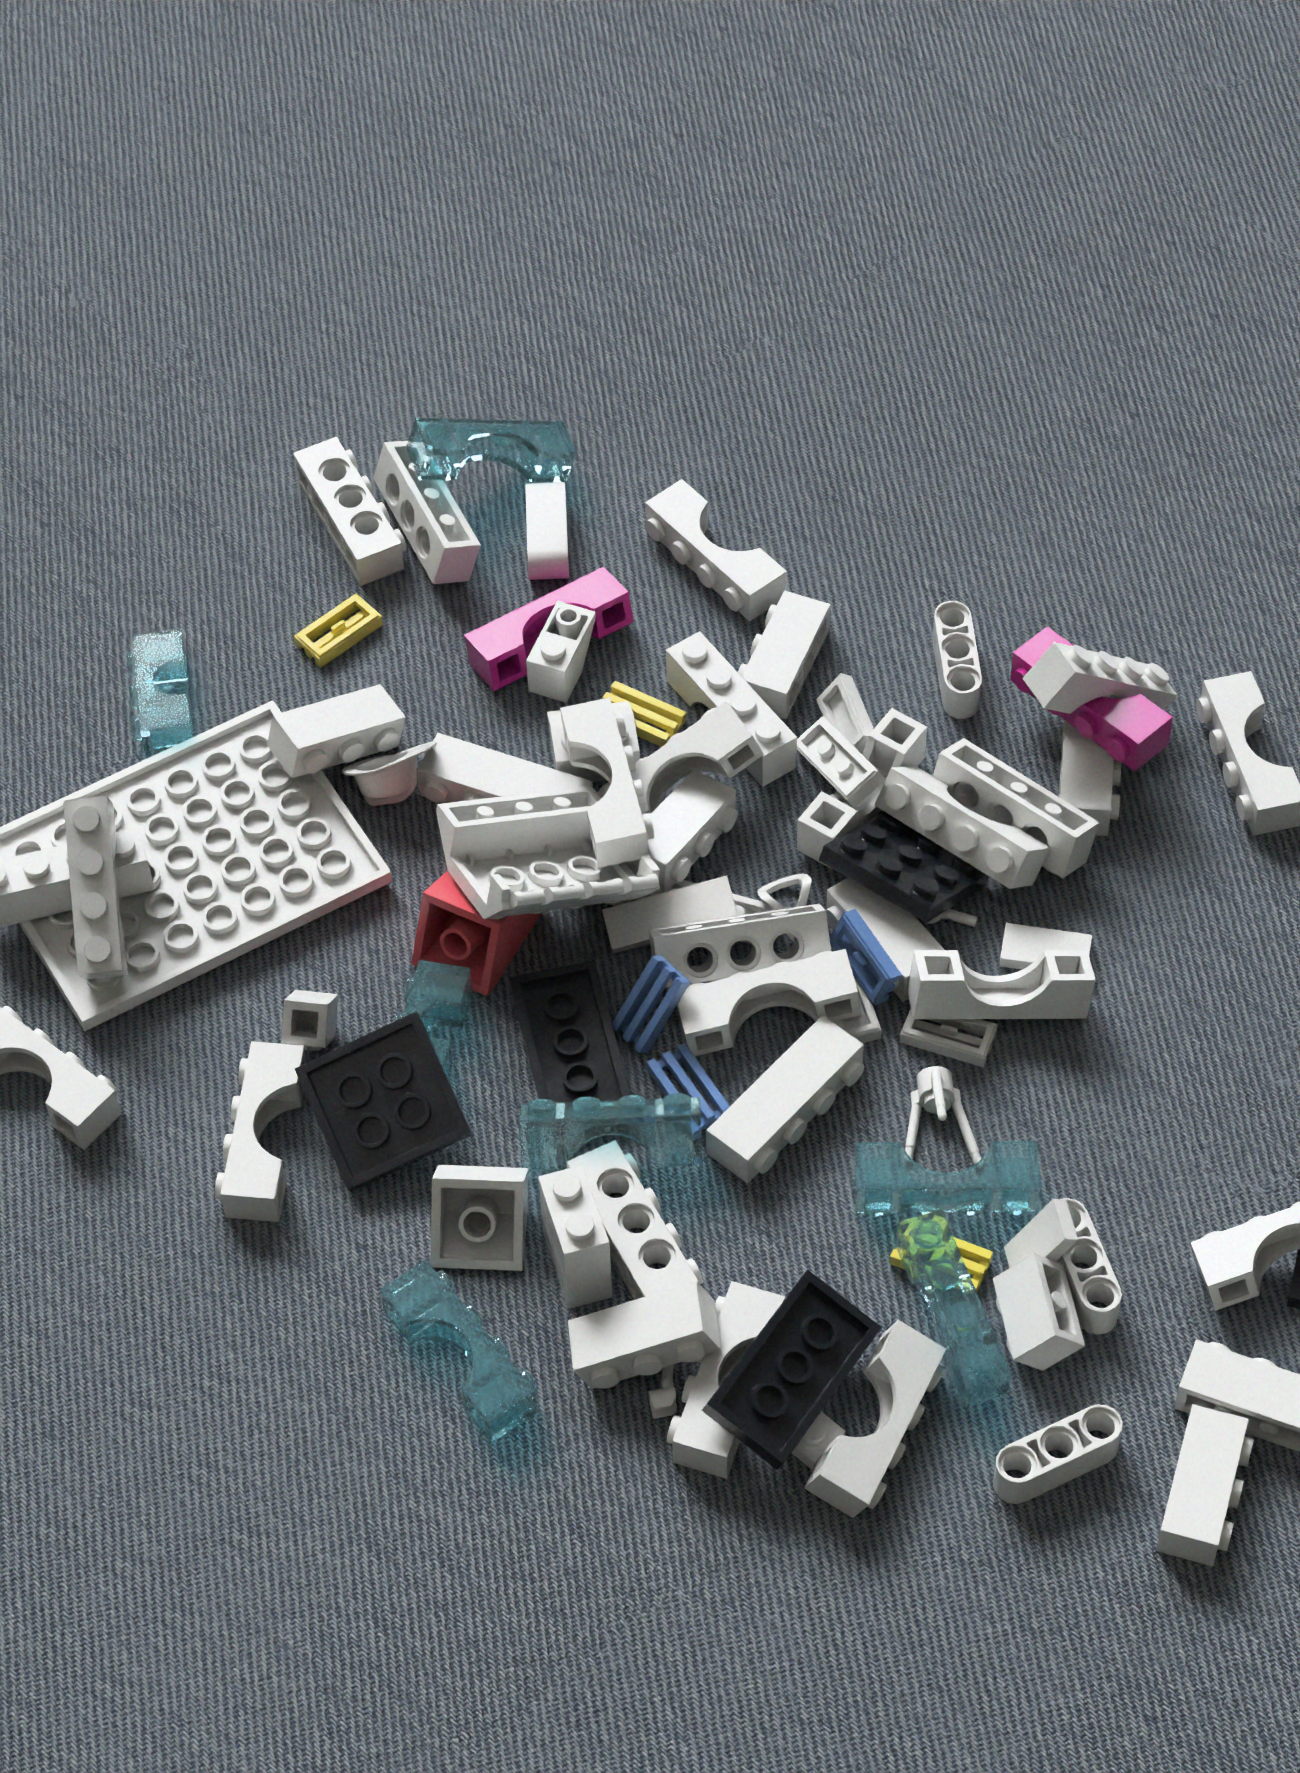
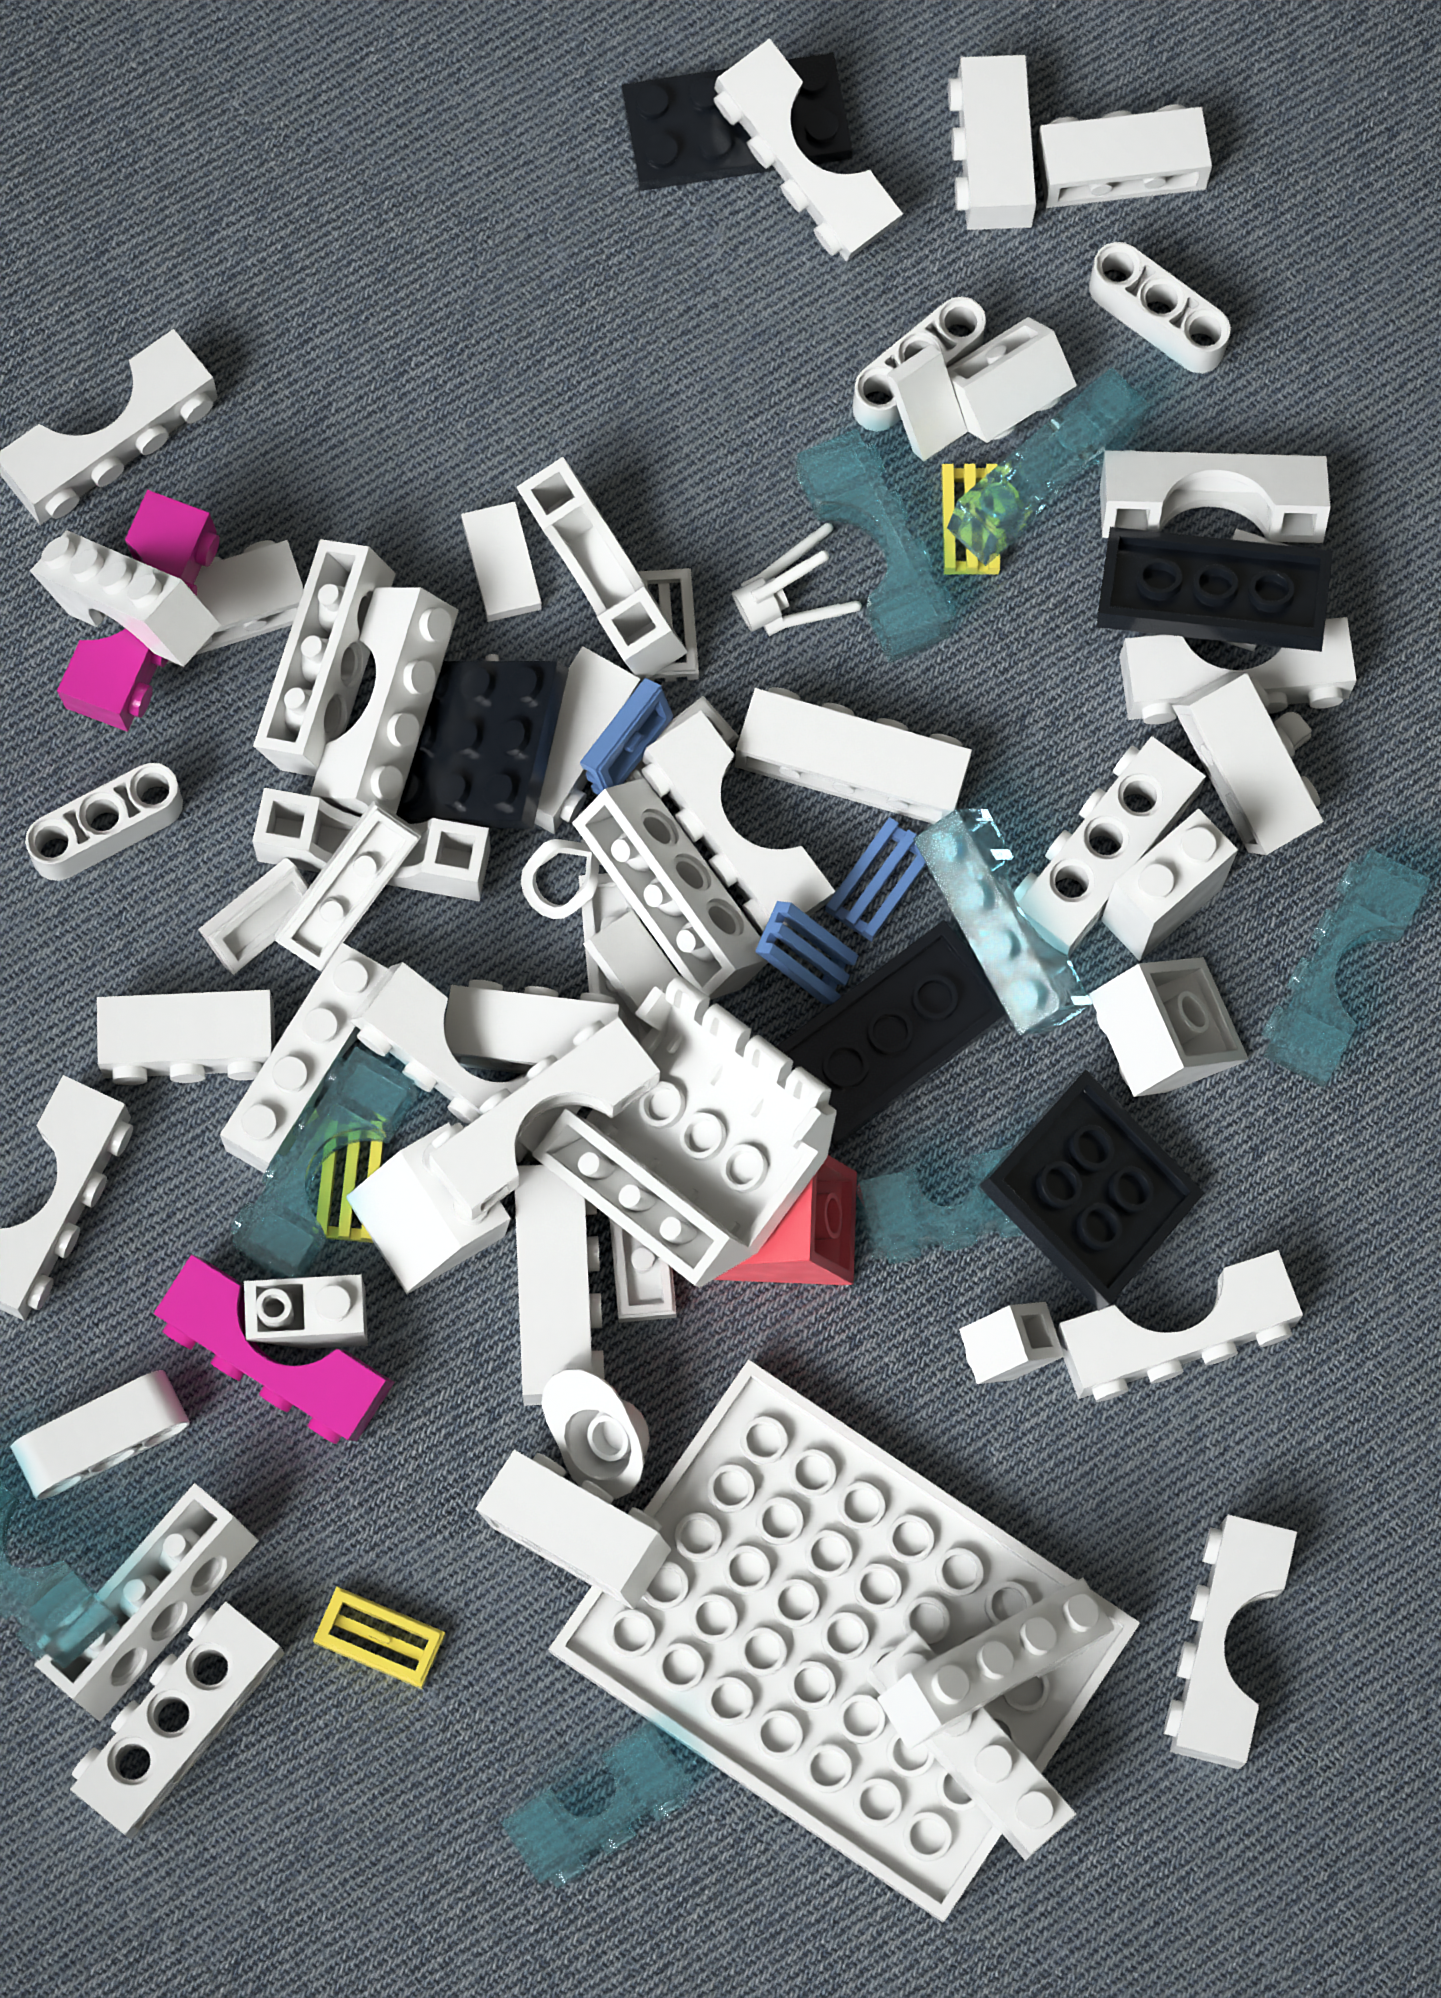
camera: 120 degrees left, 20 degrees up
(624, 654) = (361, 1104): none -> clear light blue arch

